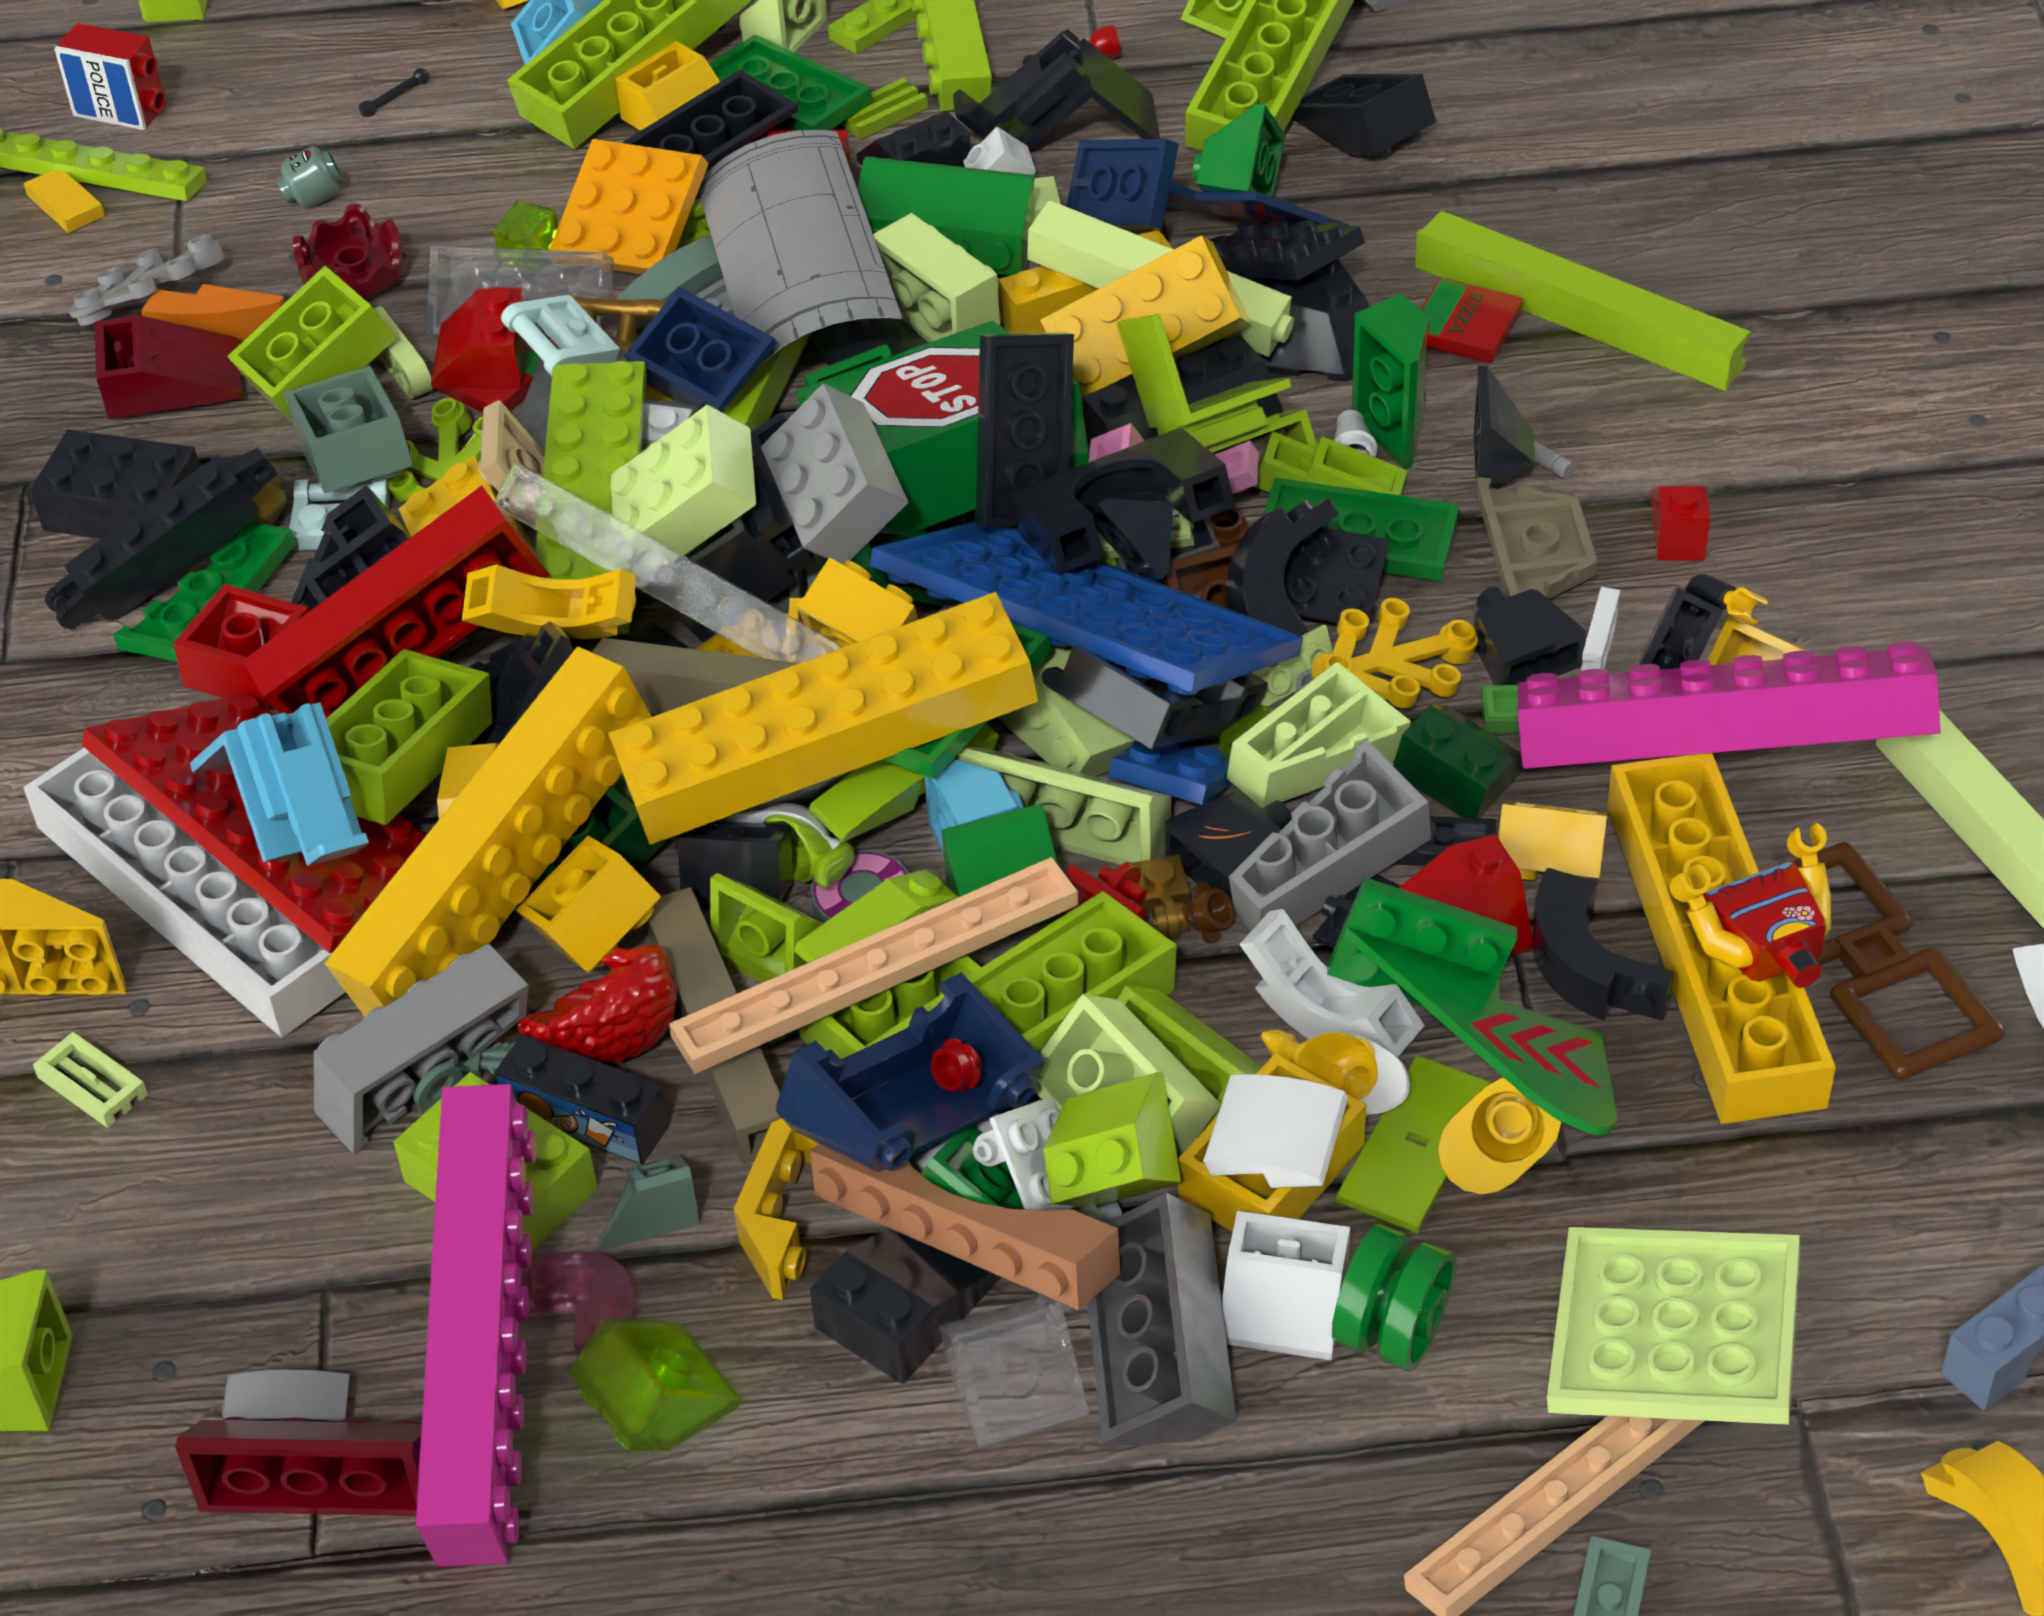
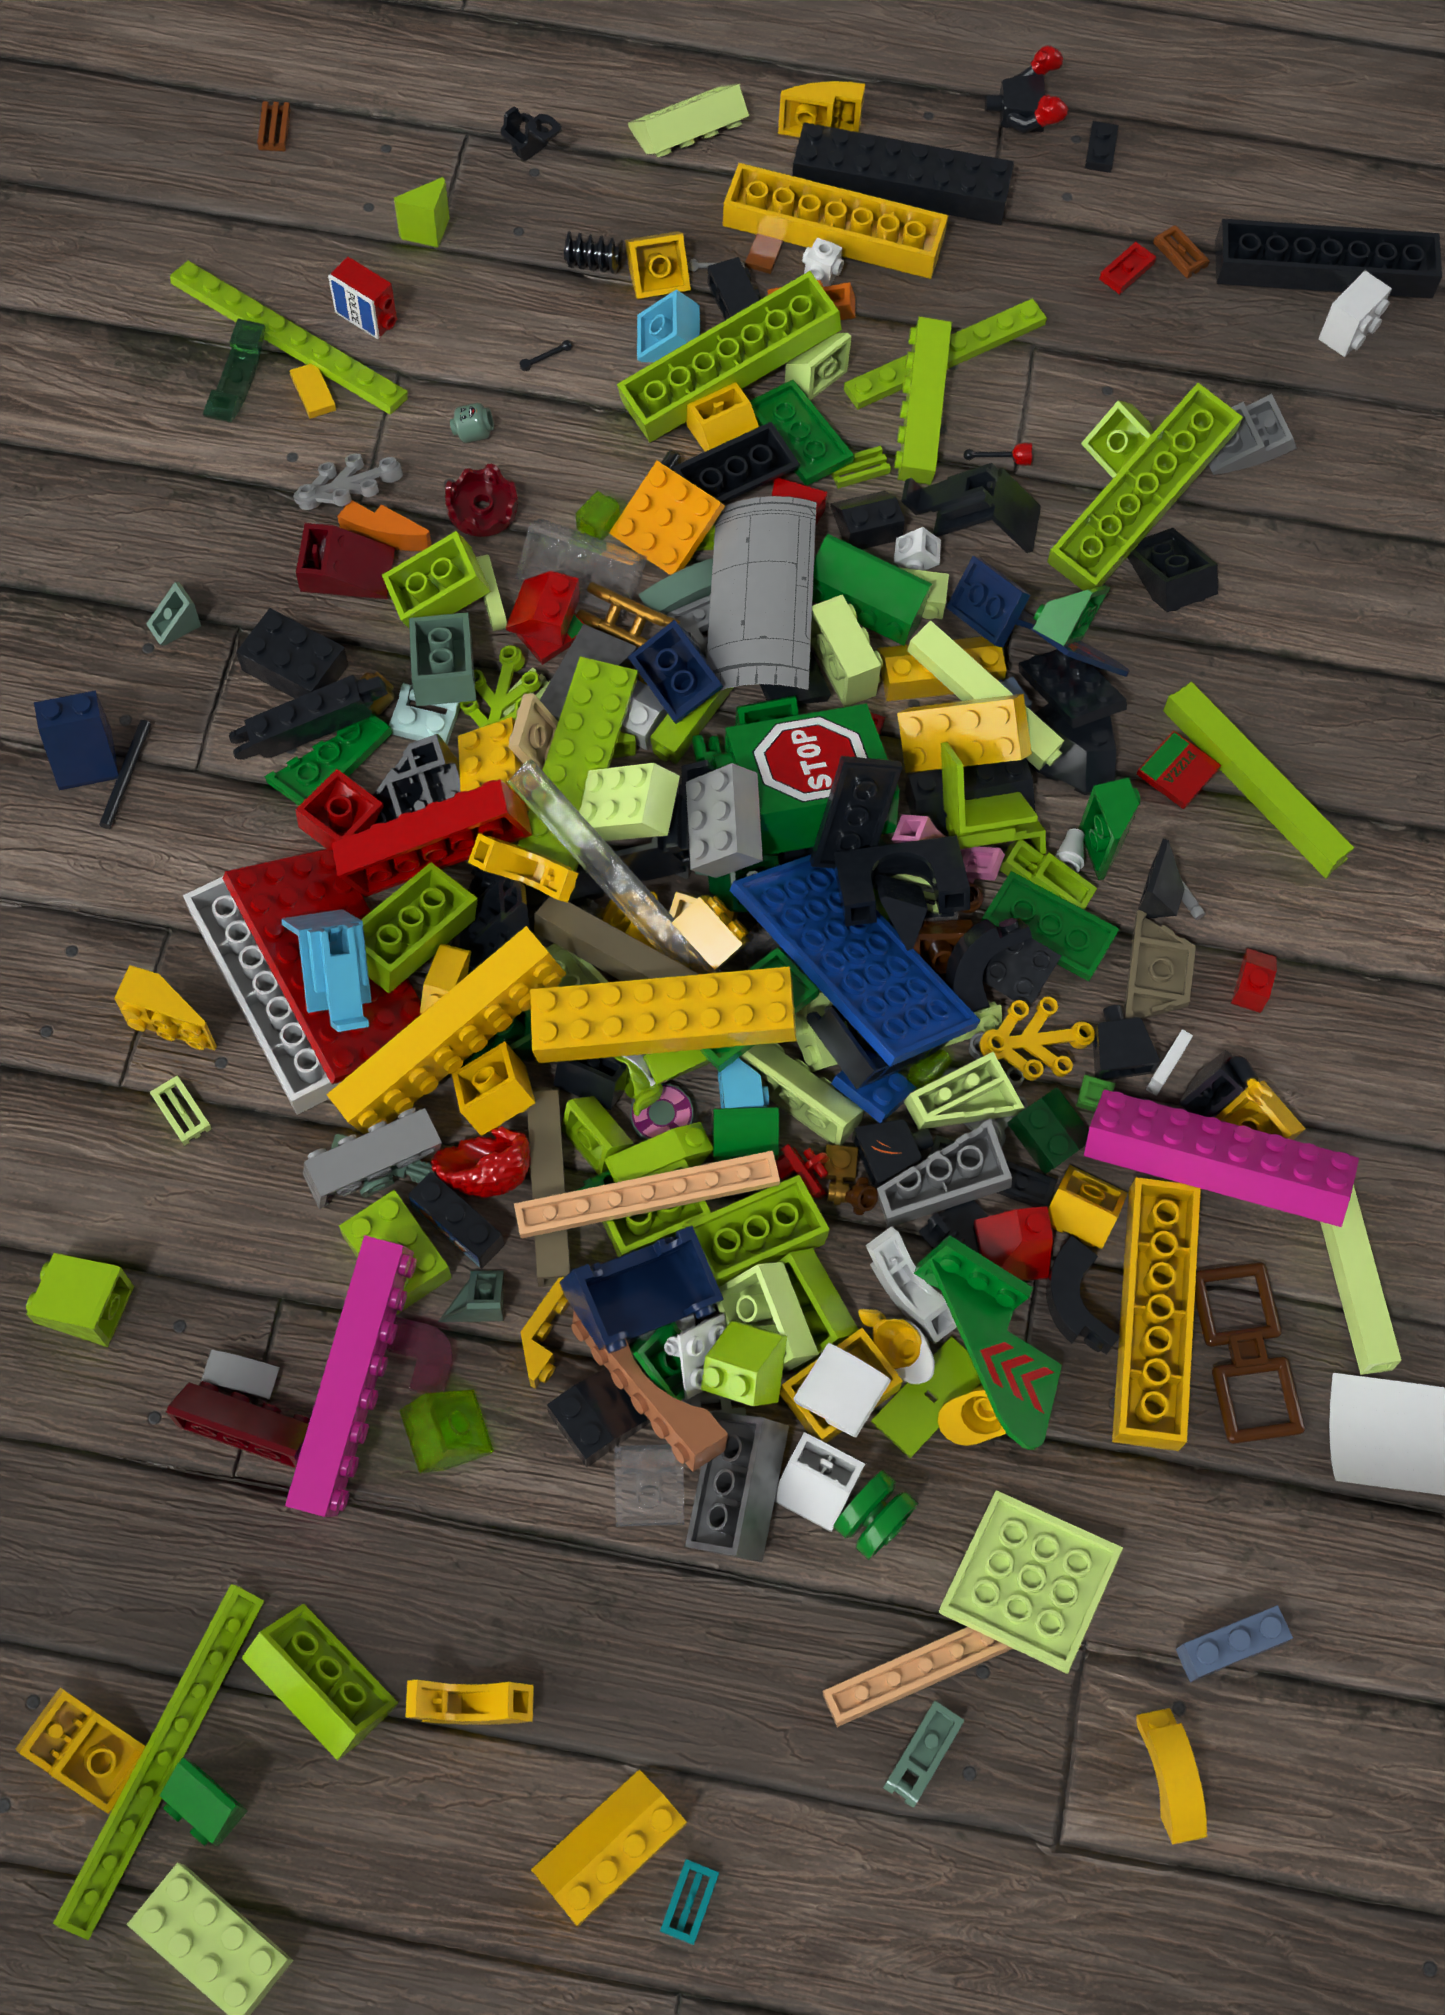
camera: 10 degrees right, 20 degrees up
(567, 325) = (600, 625): light aqua plate -> none
(956, 1066) = (673, 1281): red plate -> none
(1767, 919) = (1183, 1331): torso -> none

